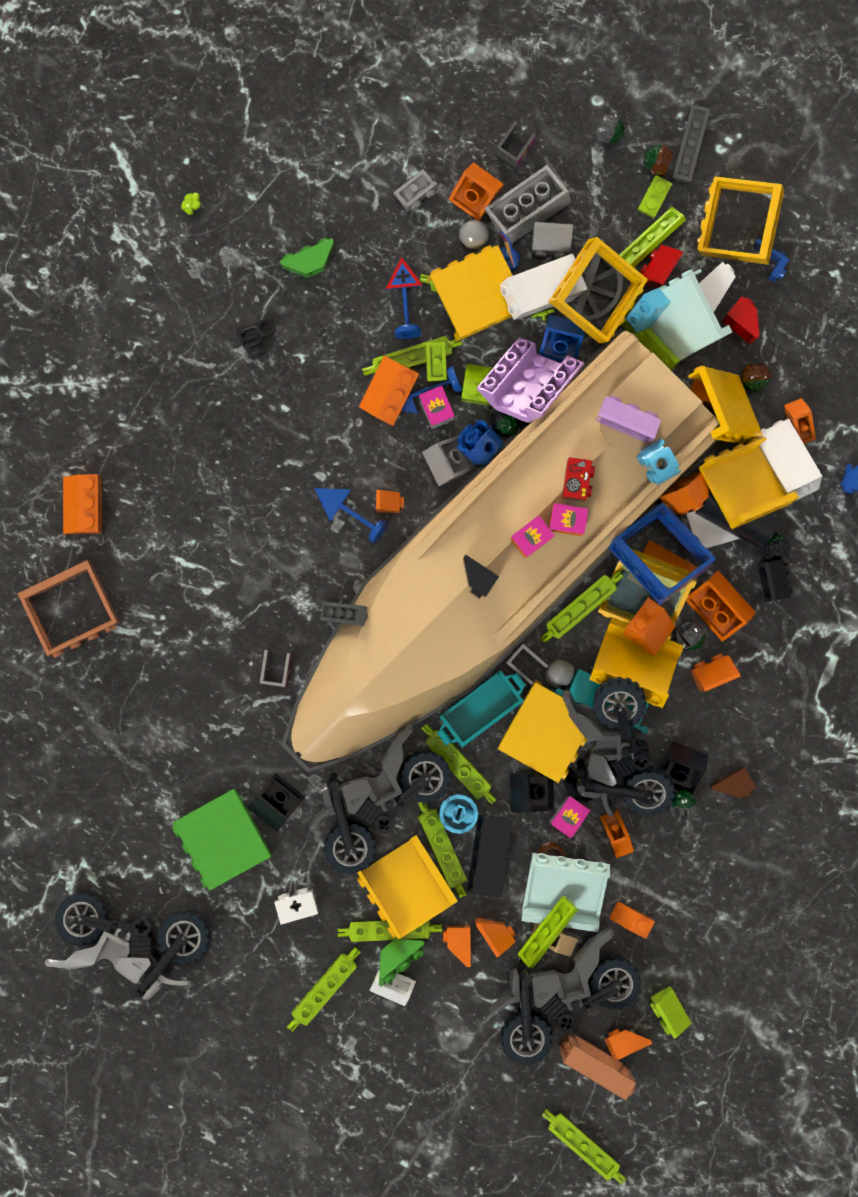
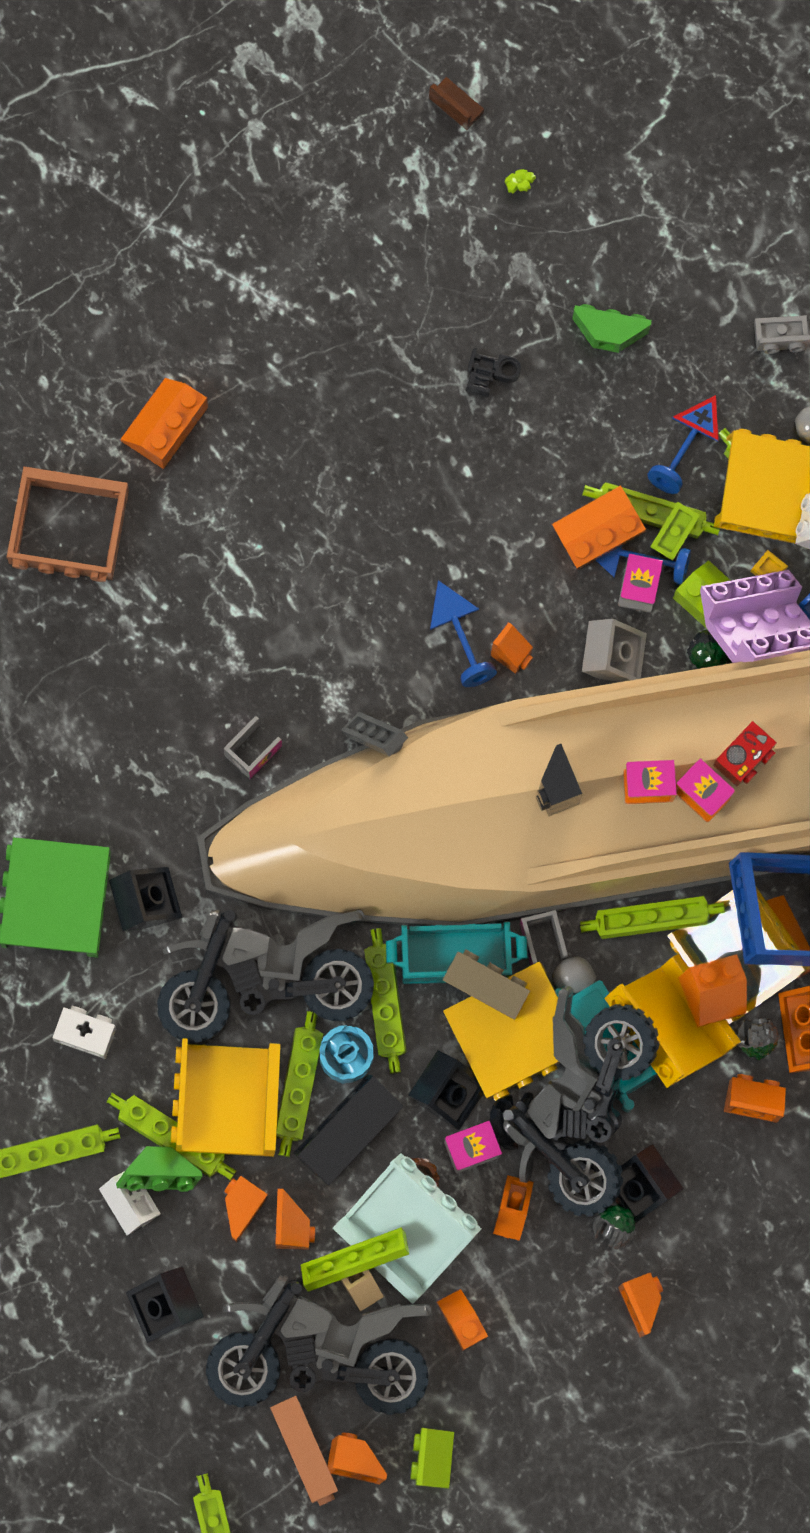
camera: 30 degrees right, 10 degrees down
(117, 179) = (455, 103): none -> reddish brown panel
(455, 1030) = (164, 1304): none -> black slope
(479, 442) = (661, 651): blue brick -> none
(504, 342) = (768, 564): none -> yellow tile
(514, 719) = (486, 983): none -> dark tan brick
(729, 836) = (642, 1301): none -> orange slope
(735, 784) = (692, 1246): reddish brown slope -> none

